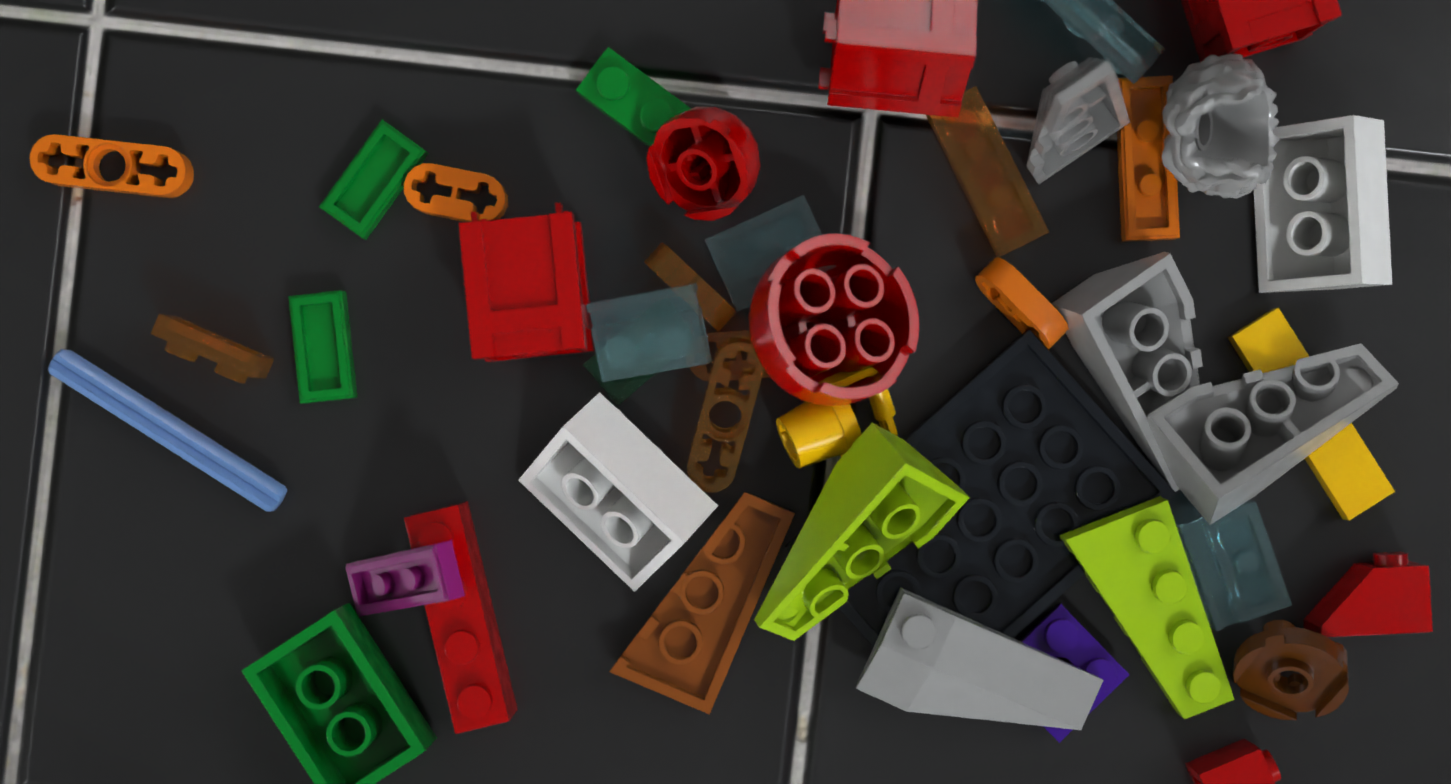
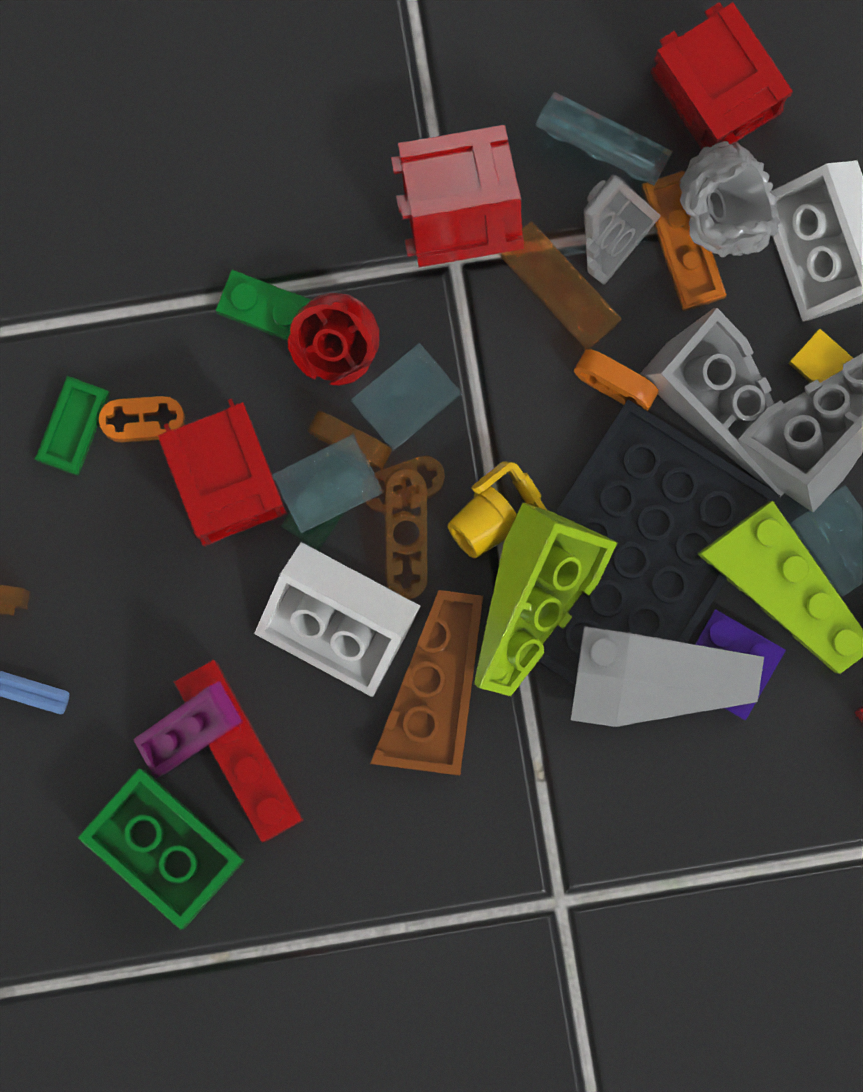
camera: 20 degrees left, 5 degrees down
(322, 346) = (67, 570): green tile -> none
(833, 321) = (466, 436): red cylinder -> none

